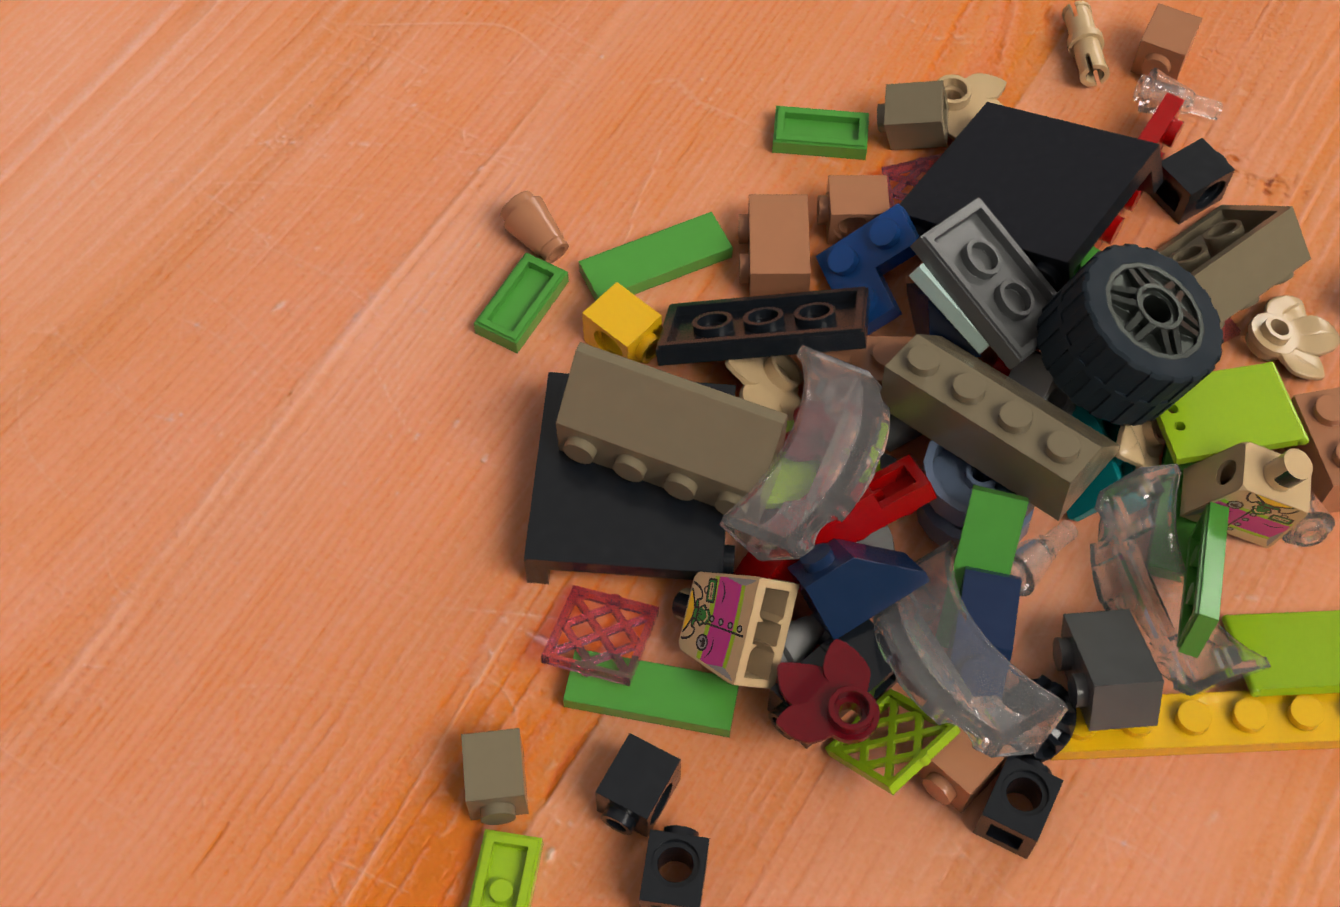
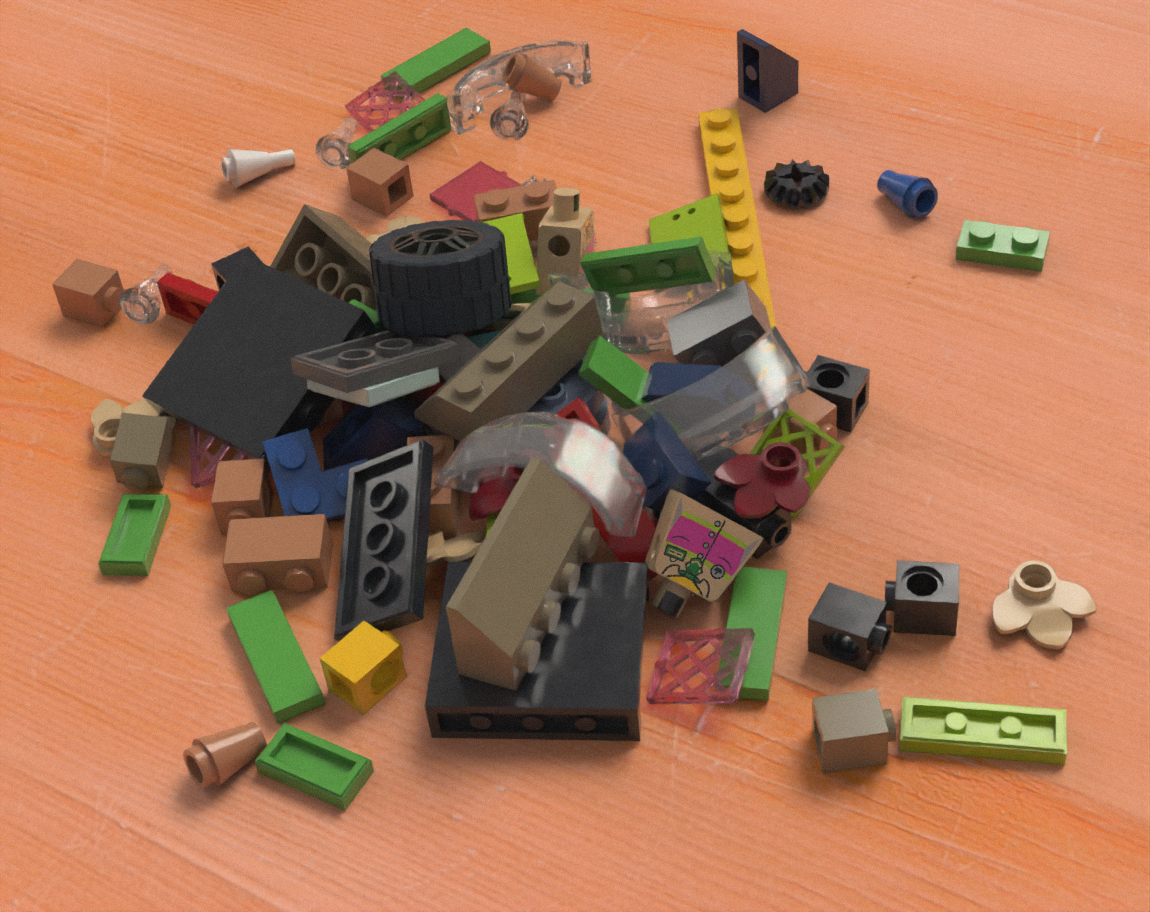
camera: 85 degrees left, 15 degrees down
(1085, 43) = (72, 345): tan pin -> none

